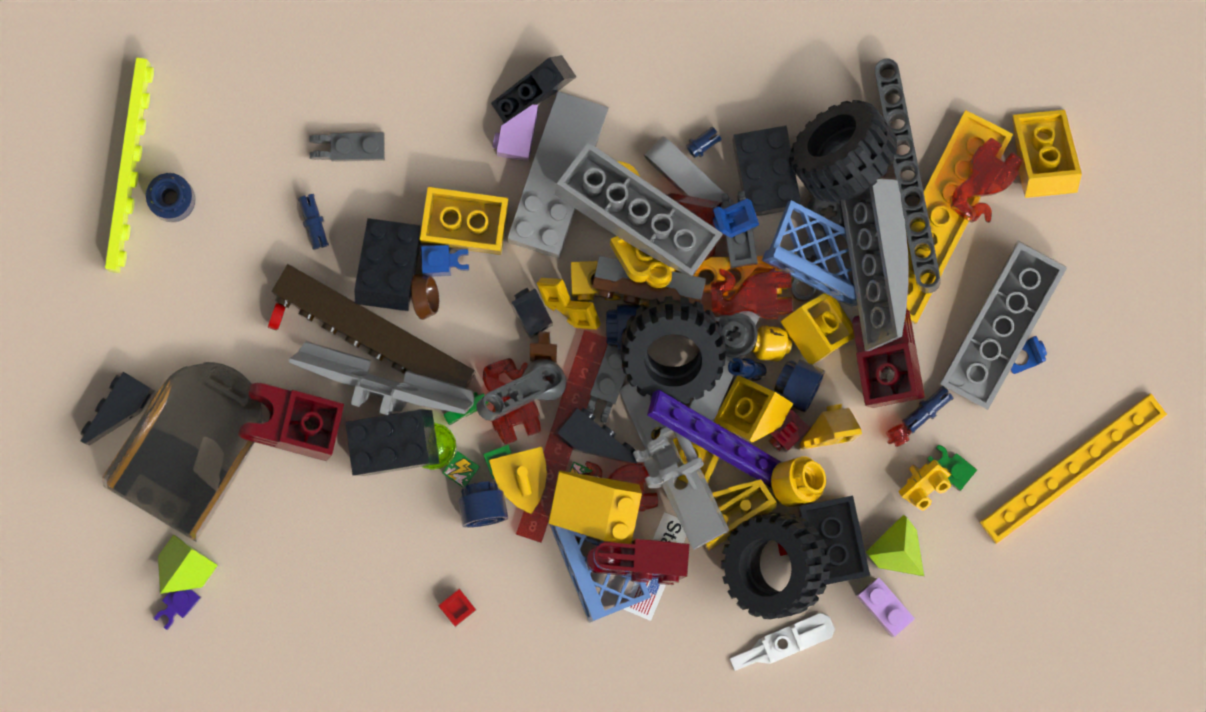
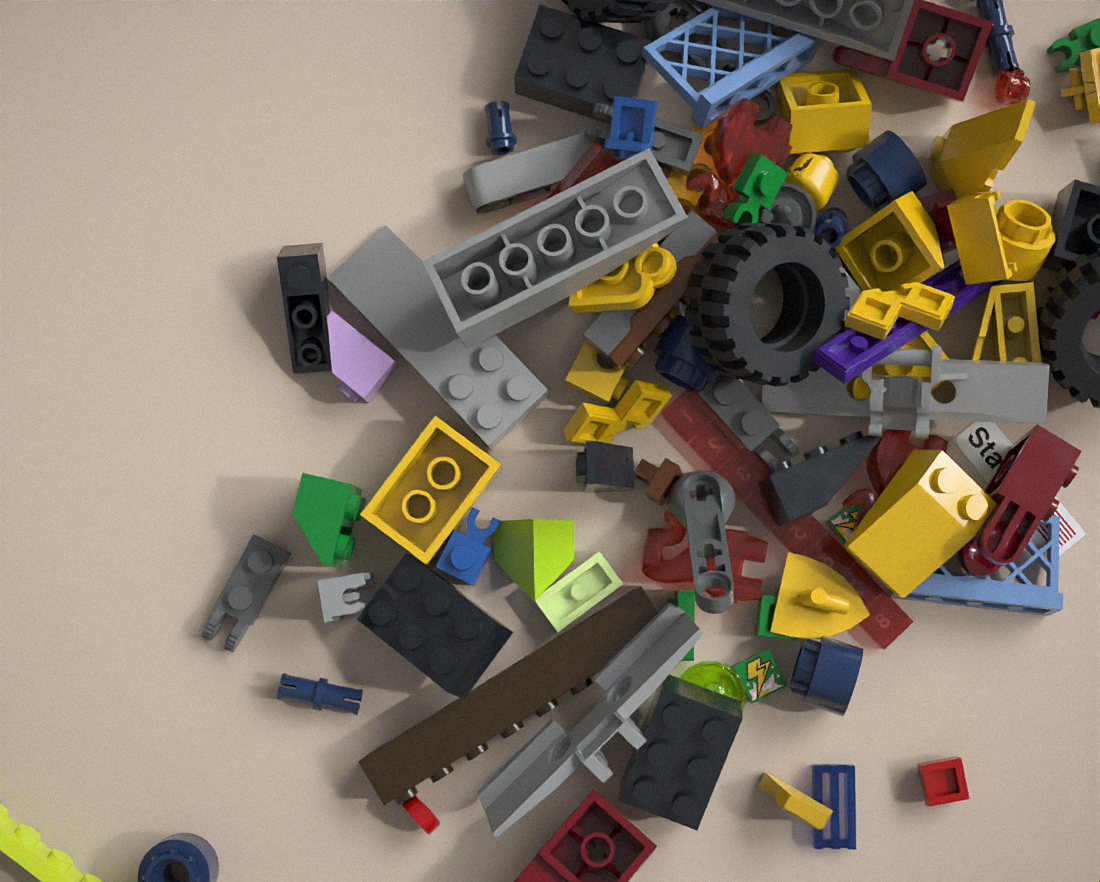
camera: 60 degrees left, 0 degrees up
(375, 201) = (338, 595): none -> light grey hinge
(387, 563) = (835, 841): none -> clear blue tile
(399, 528) = (796, 802): none -> yellow tile
(416, 169) = (327, 515): none -> green slope
(424, 296) = (503, 599): reddish brown hat -> none
(452, 338) = (578, 591): none -> yellowish green plate
(462, 300) = (534, 551): none -> lime slope
(722, 437) = (877, 310): none -> yellow tile
(742, 309) = (757, 188): none -> green plate
(780, 453) = (979, 238): none -> yellow hinge

